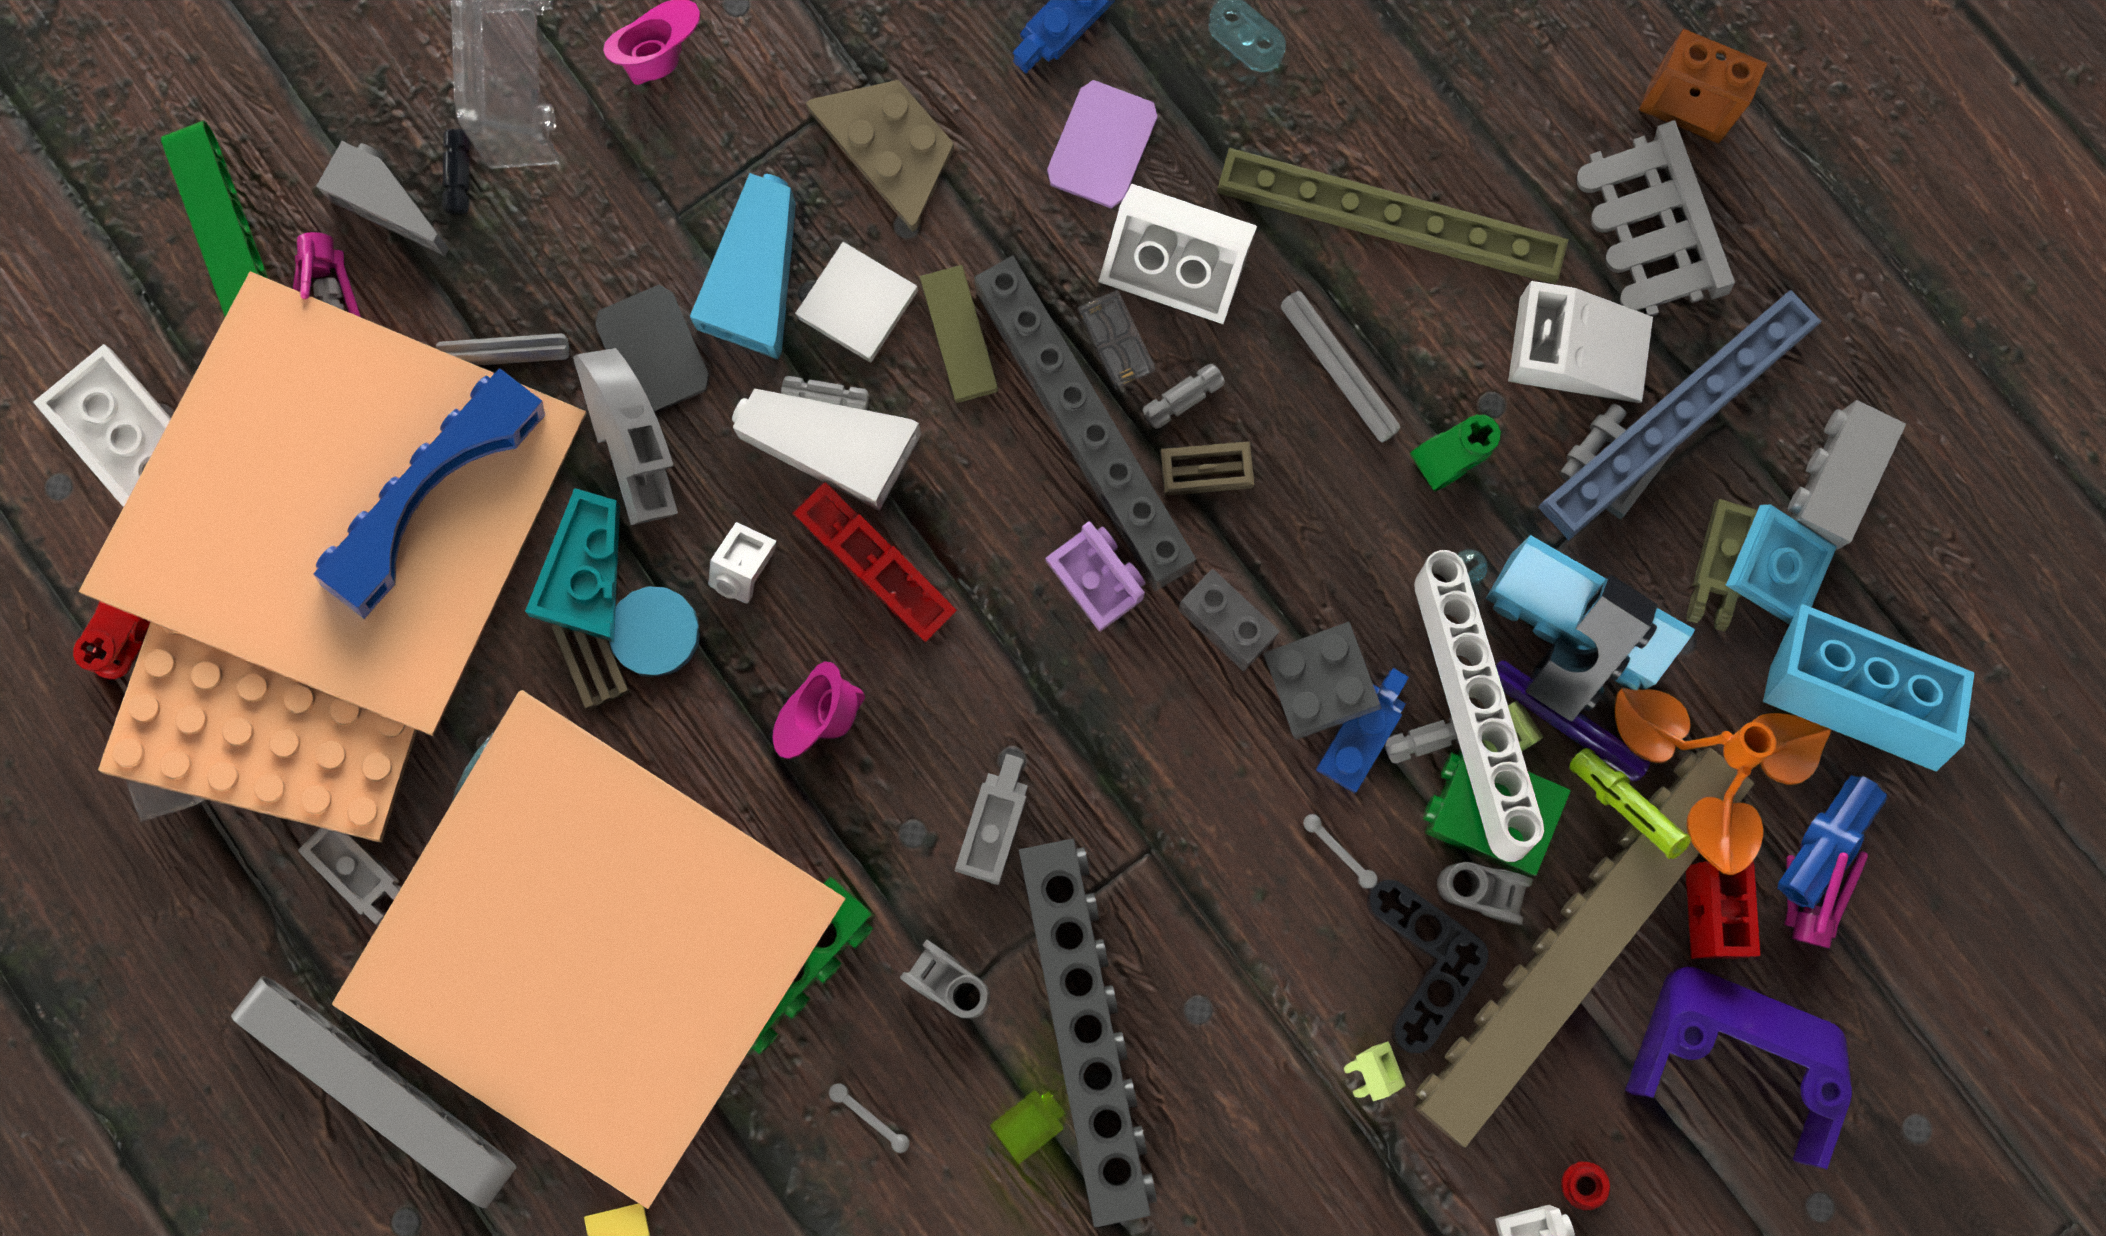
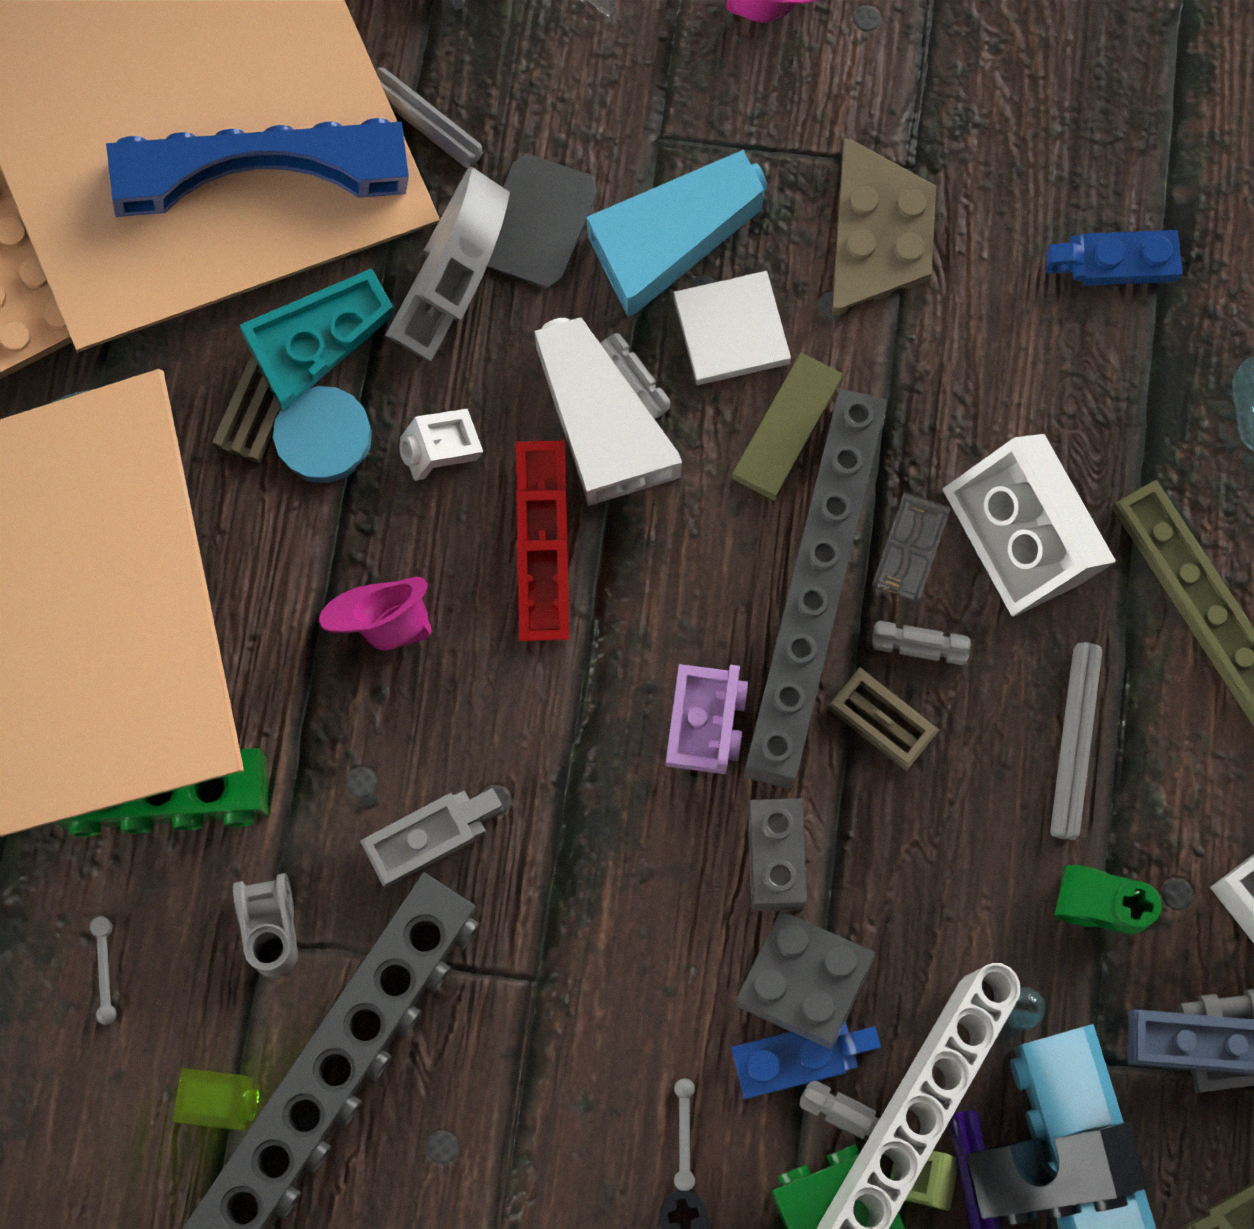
camera: 45 degrees right, 5 degrees down
(1102, 144) = (1054, 383): lavender piece -> none

